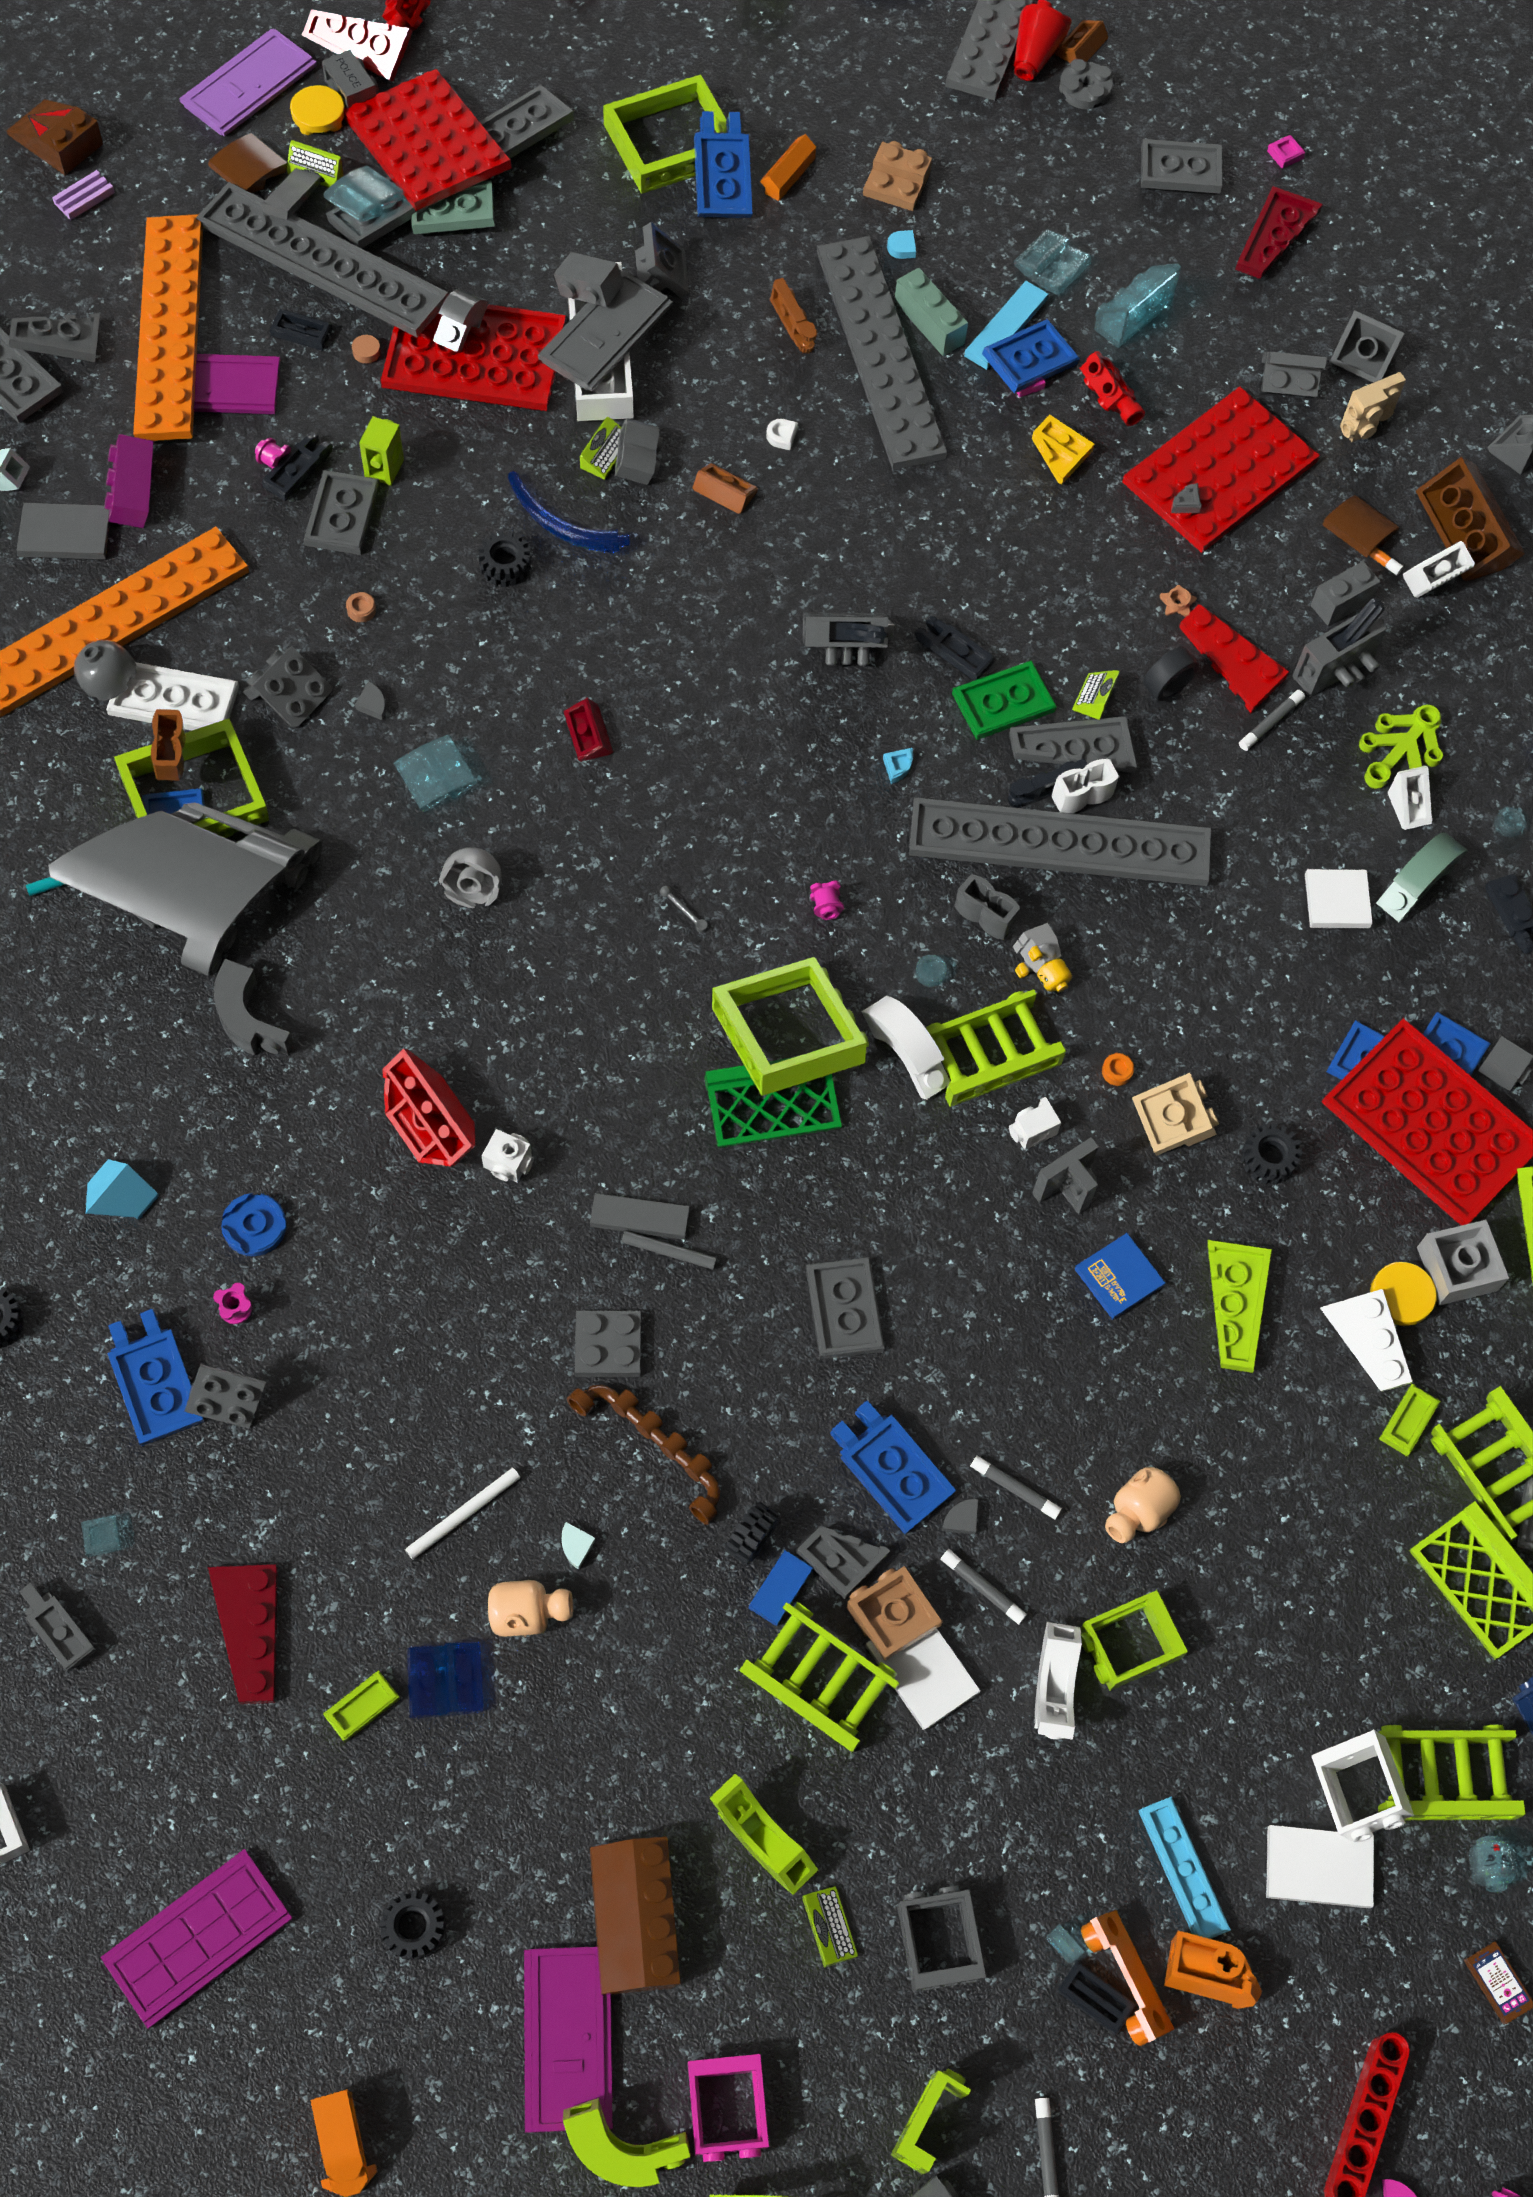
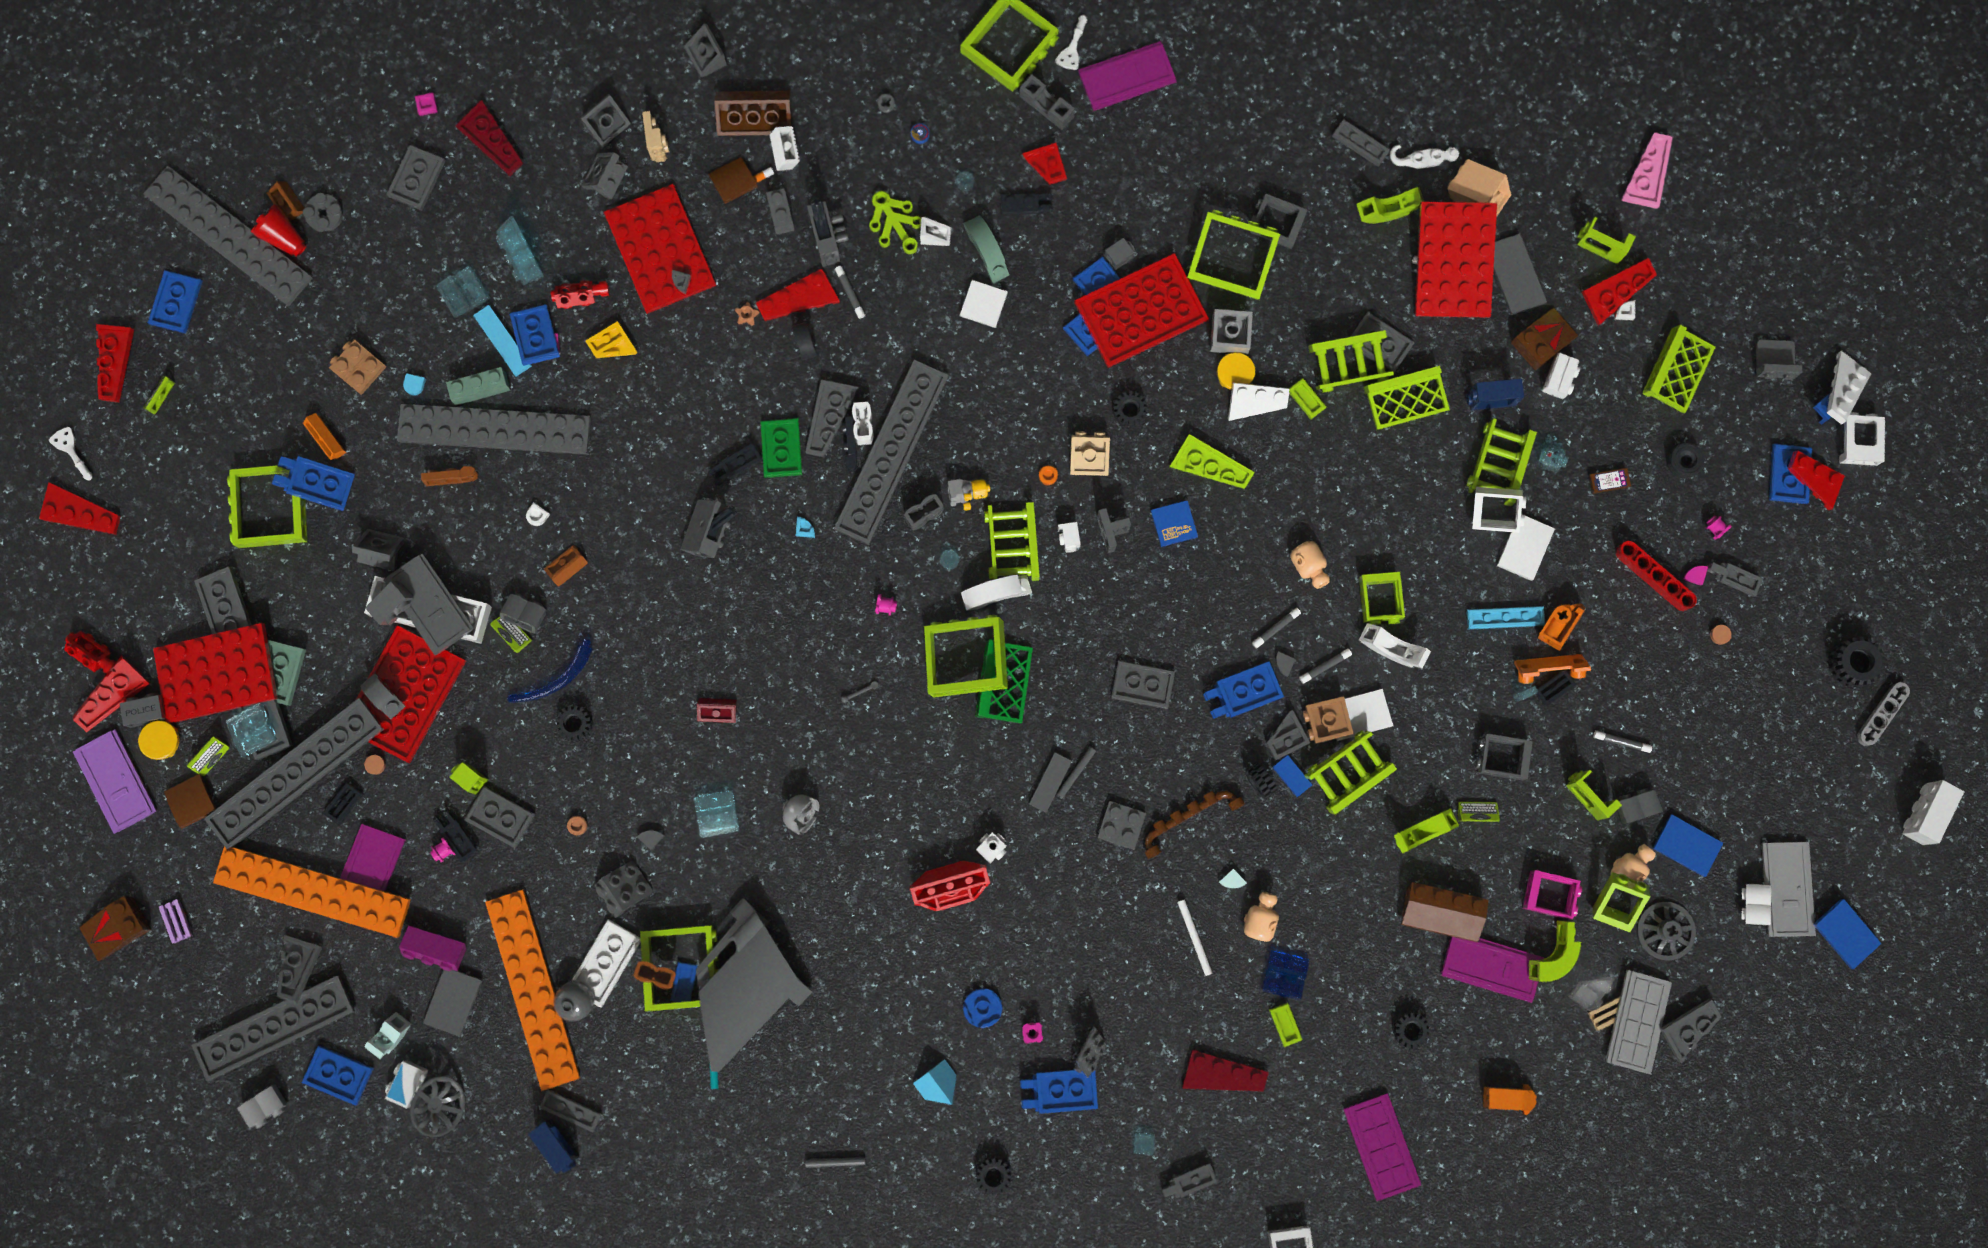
camera: 70 degrees left, 15 degrees up
(231, 996) = (837, 983): dark grey arch -> none
(291, 194) = (231, 778): dark grey tile -> none
(1096, 693) = (798, 391): slope -> none

